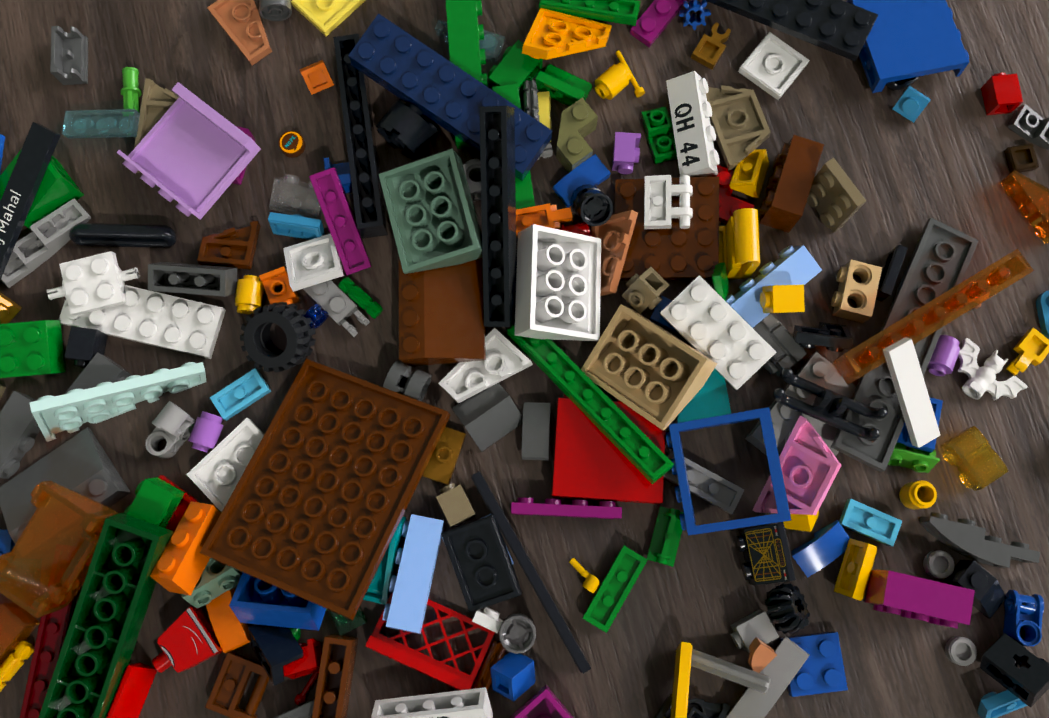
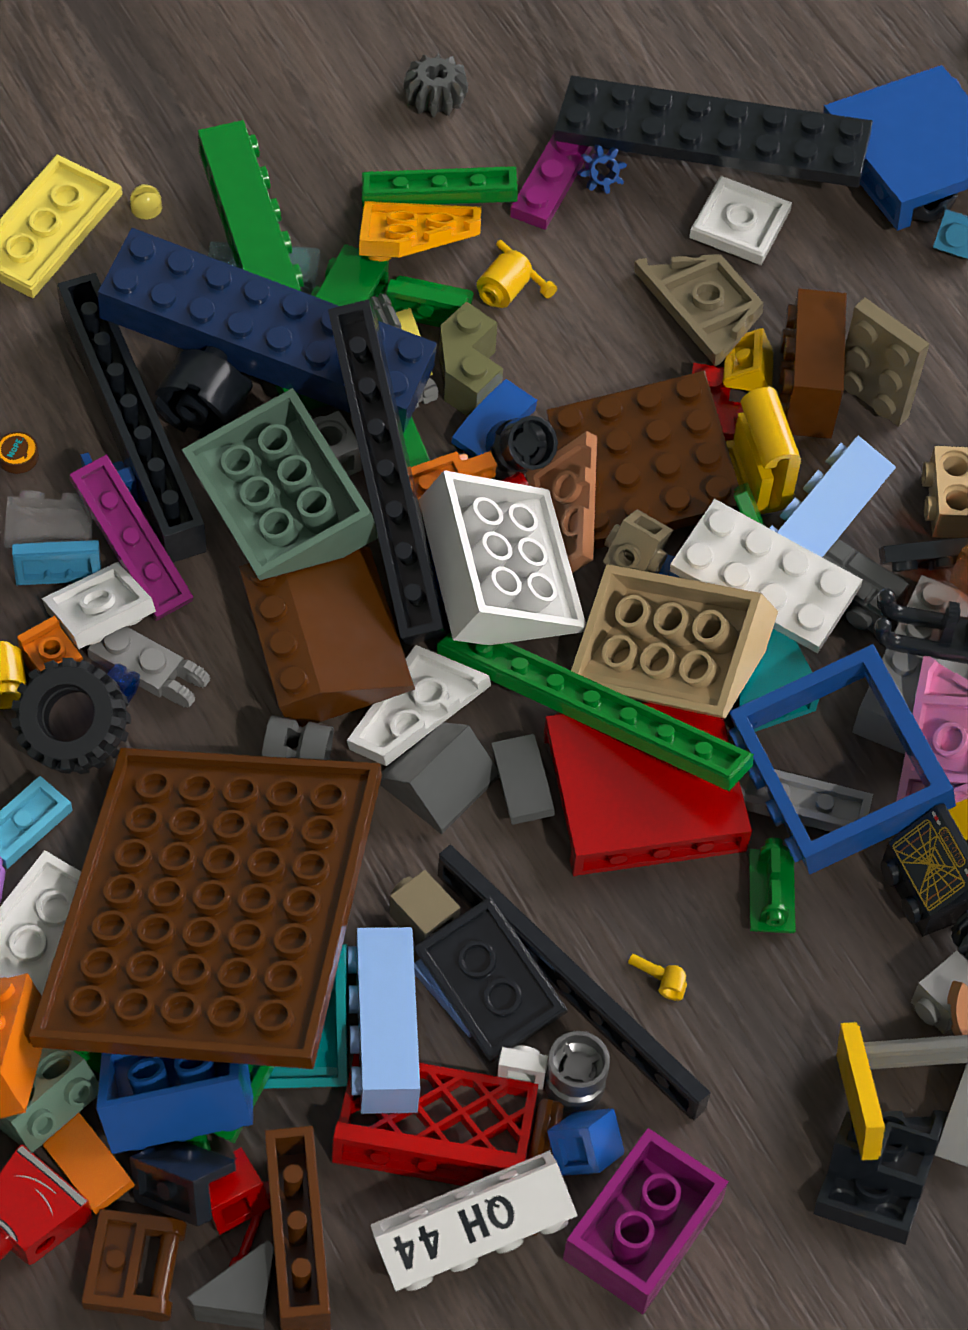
camera: 20 degrees left, 20 degrees down
(316, 77) = (36, 351): orange plate -> none
(346, 625) = (287, 1111): clear green tile -> none
(360, 297) = (187, 646): green axle -> none
(445, 456) = (385, 848): pearl gold plate -> none
(578, 509) = (602, 882): magenta plate -> none
(614, 589) = (712, 981): green plate -> none
(625, 152) = (551, 368): medium lavender brick -> none
(658, 202) = (624, 420): white plate -> none
(659, 134) = (596, 340): green slope -> none
(692, 125) = (642, 312): white brick -> none
(710, 48) = (639, 212): pearl gold plate -> none
(782, 298) = (849, 509): yellow brick -> none

